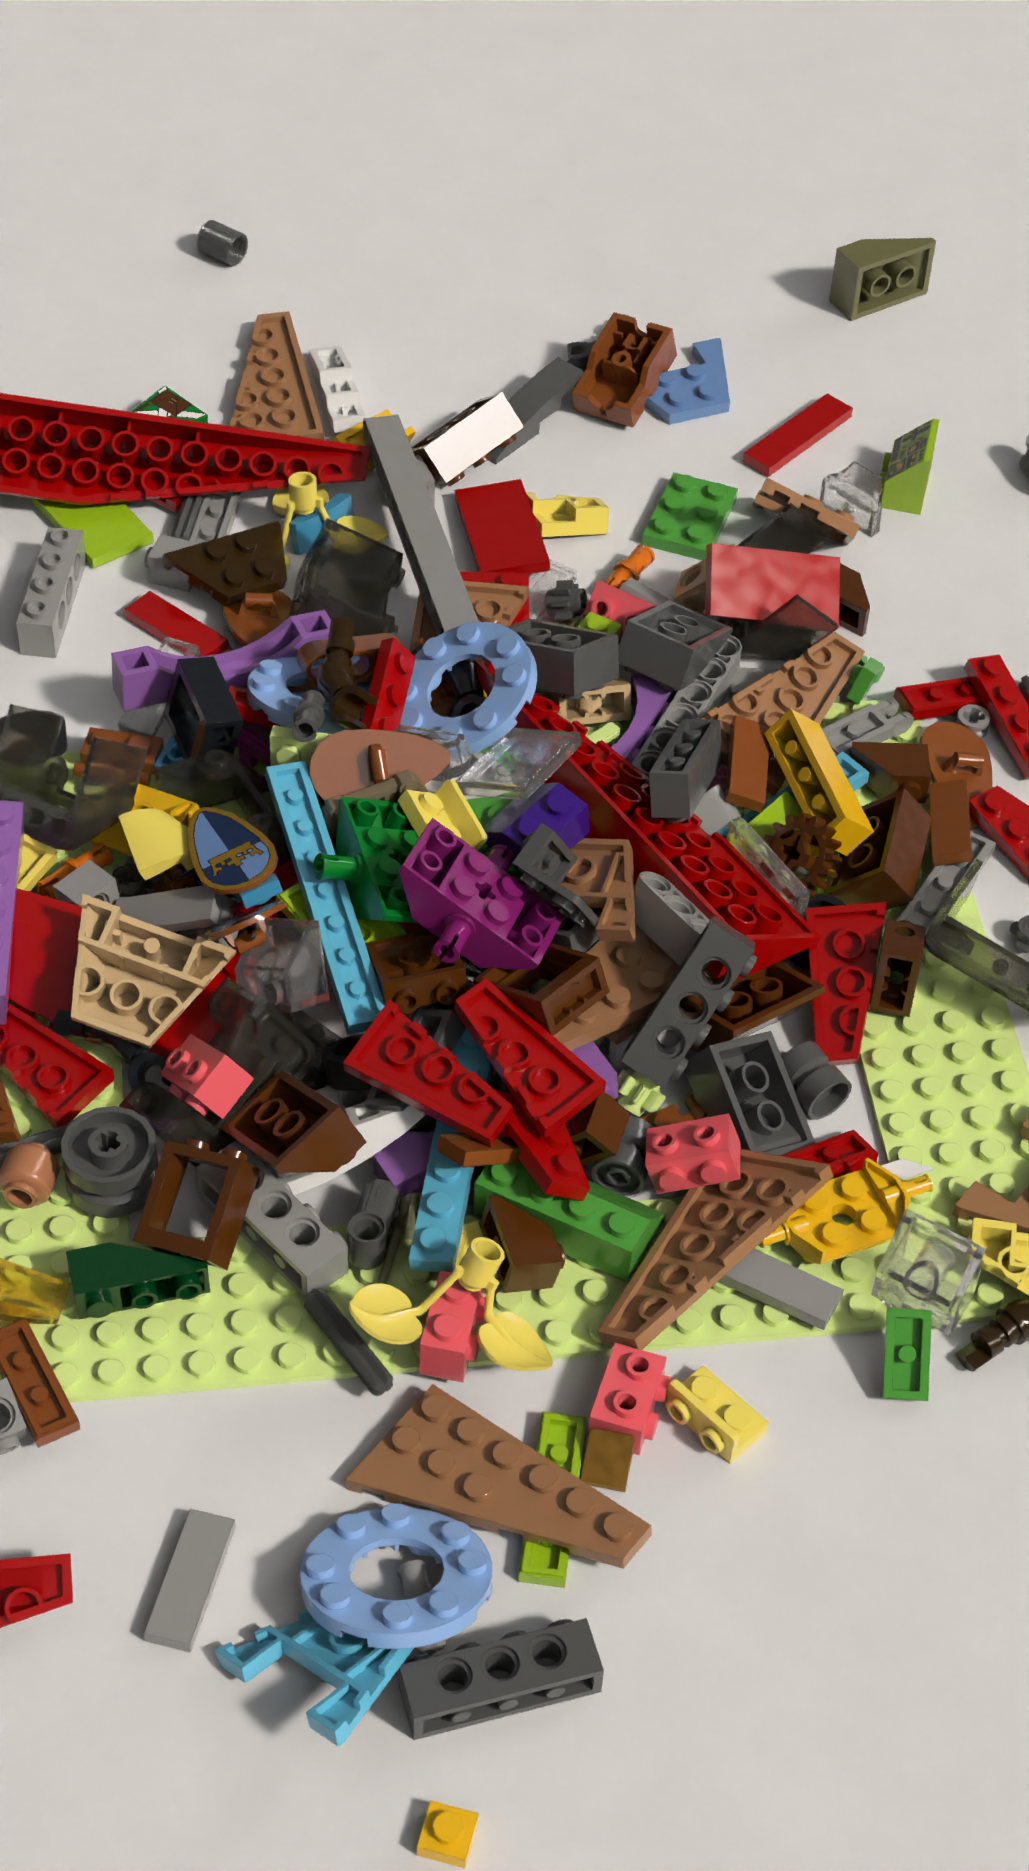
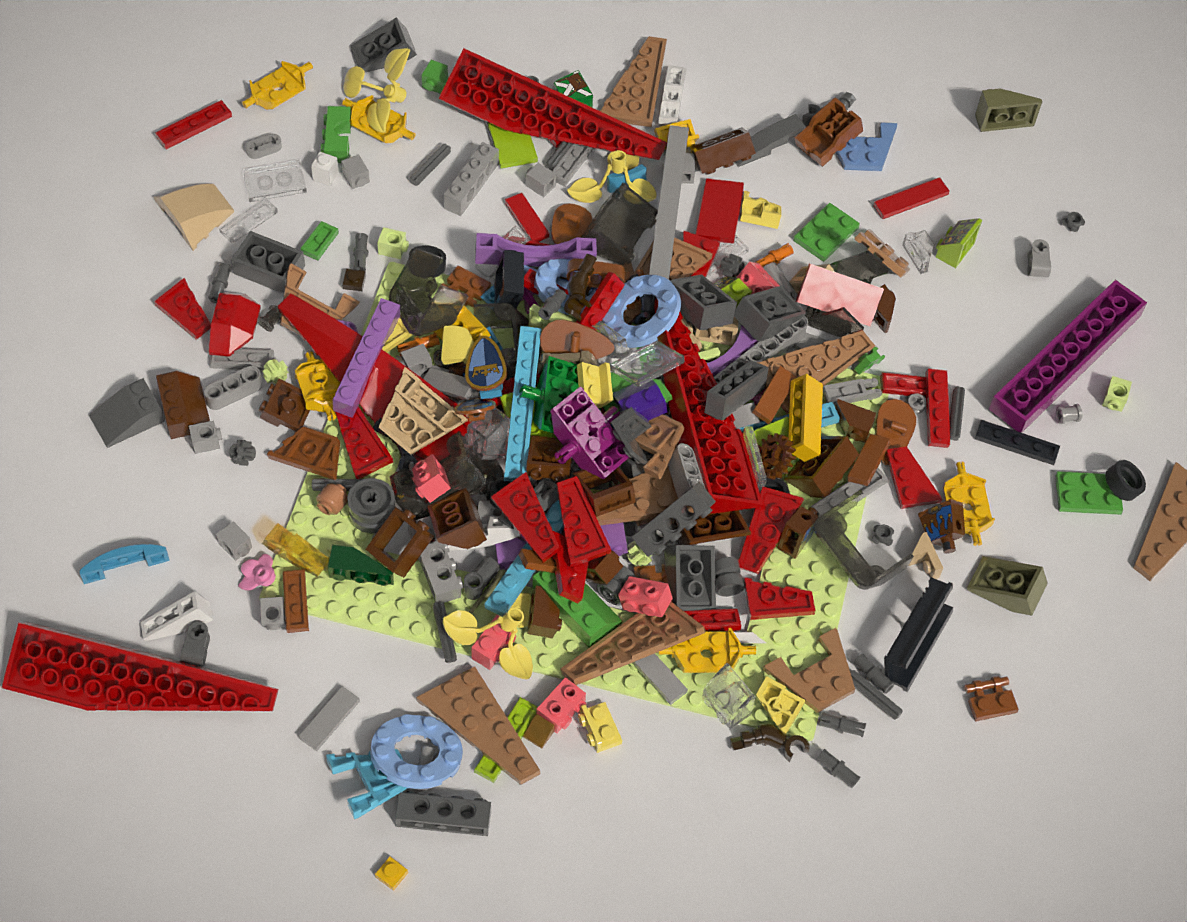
camera: 20 degrees right, 10 degrees up
(234, 563) = (569, 192): dark brown wing -> none
(907, 1354) = (702, 731): bright green plate -> none
(915, 1095) = (772, 601): none -> red wing

